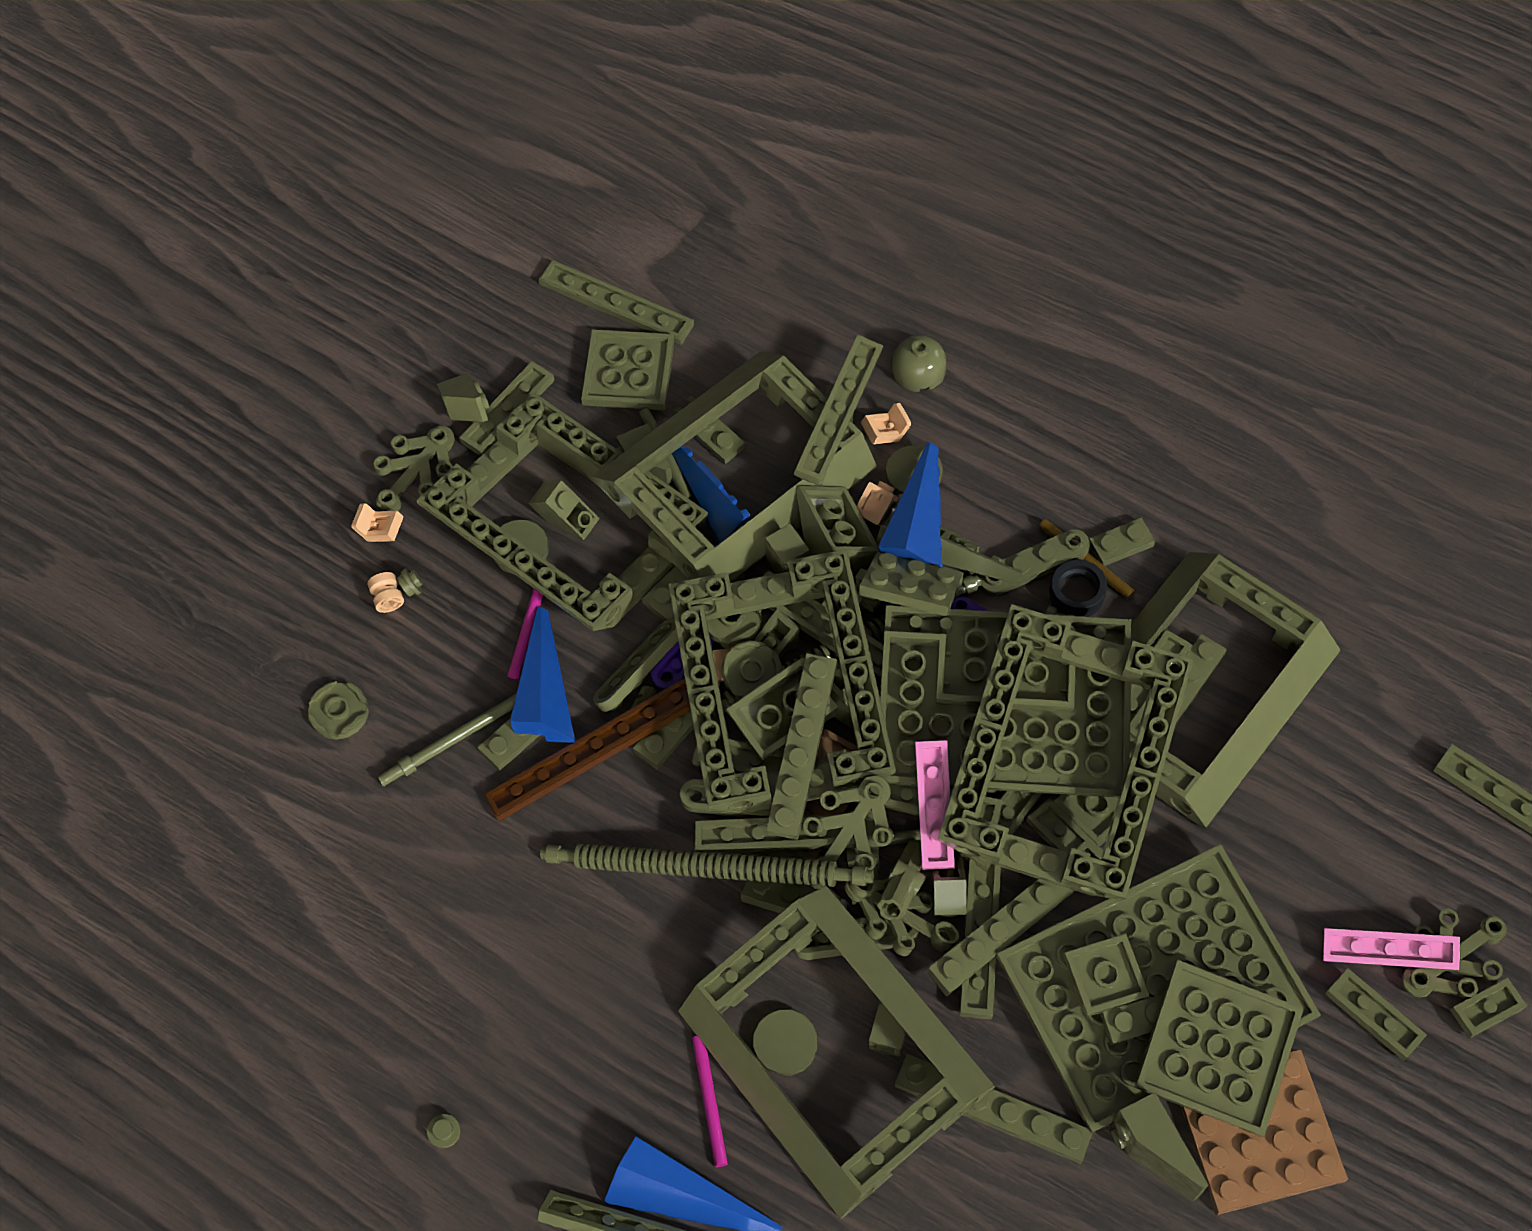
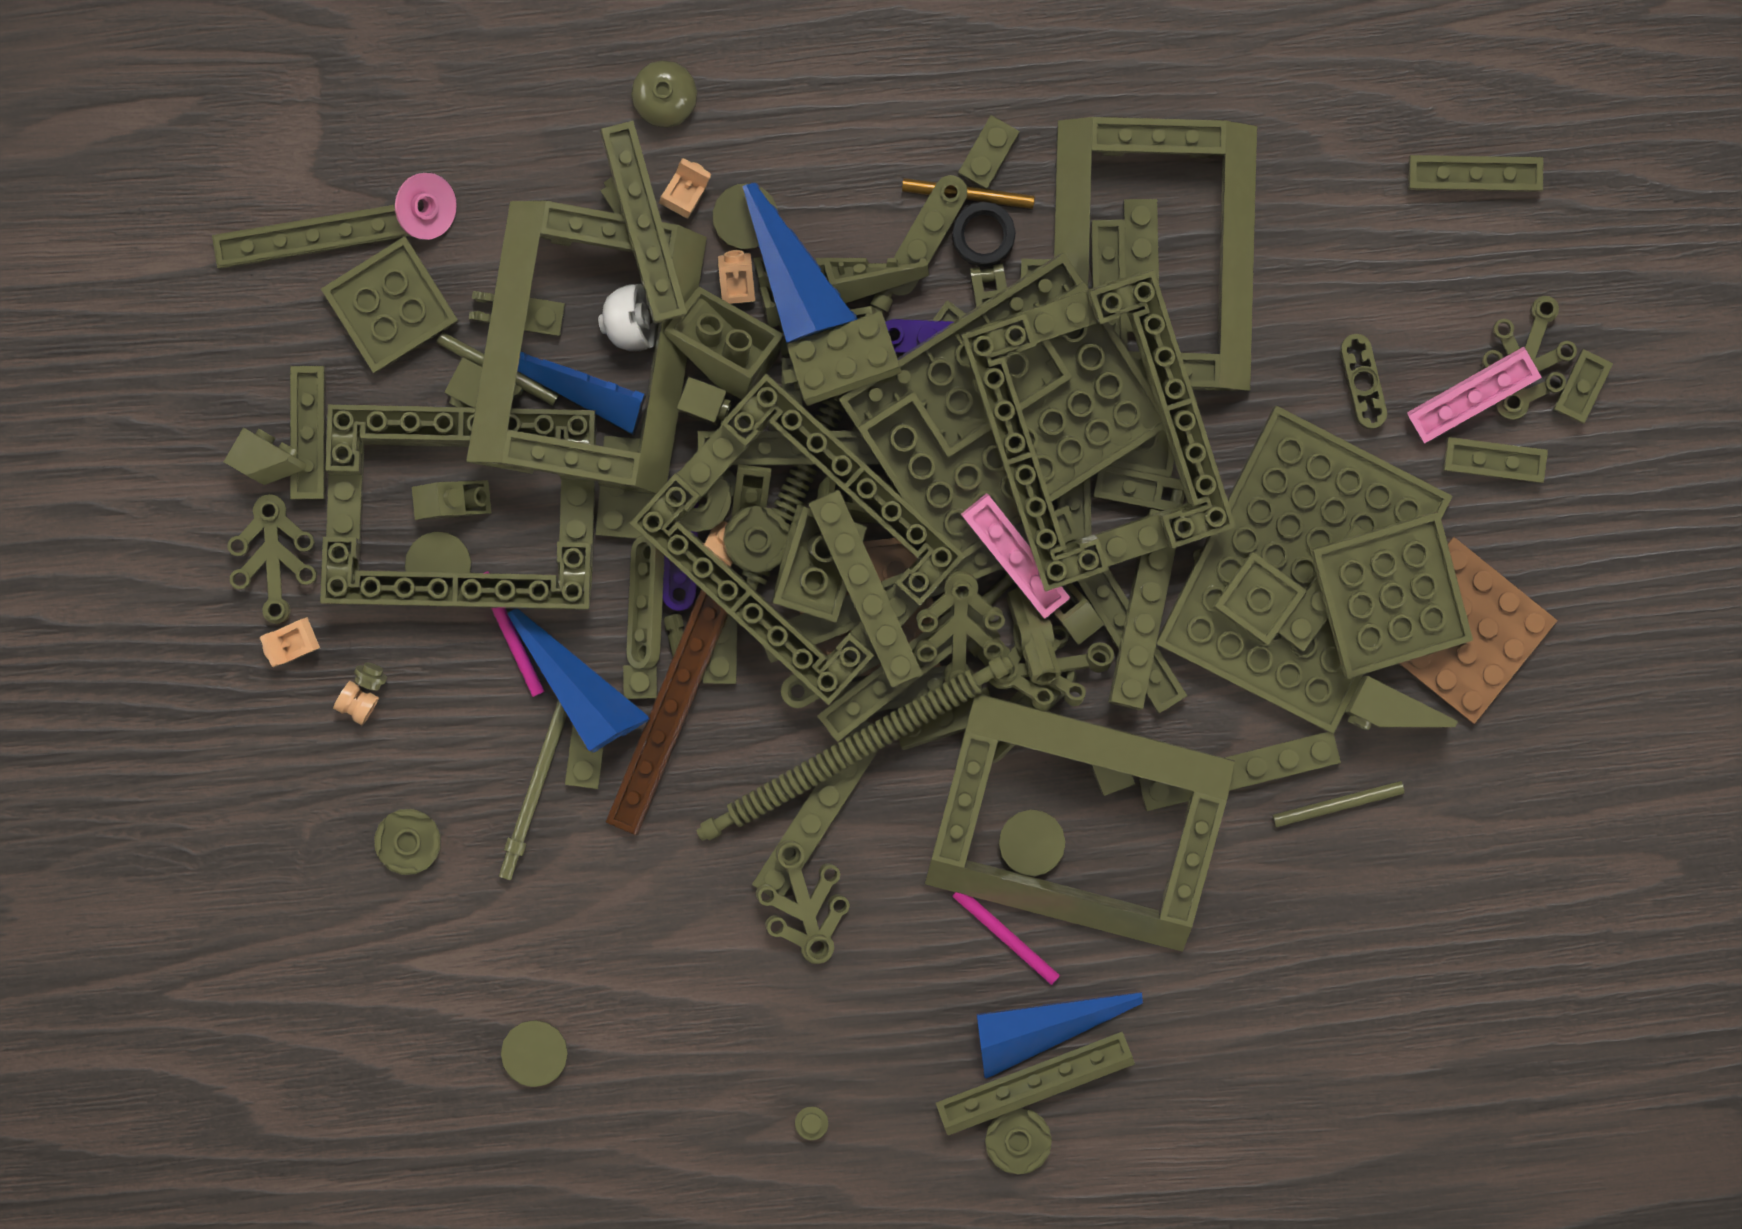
camera: 35 degrees left, 25 degrees up
(291, 921) = (534, 1053): none -> olive tile
(574, 960) = (806, 906): none -> olive plant
(589, 716) = (640, 682): none -> olive plate
(632, 905) = (814, 819): none -> olive plate
(713, 319) = (438, 206): none -> bright pink dish
(776, 472) = (628, 319): none -> white cylinder
(1057, 1196) = (1338, 804): none -> olive bar
(1288, 899) = (1378, 403): none -> olive beam

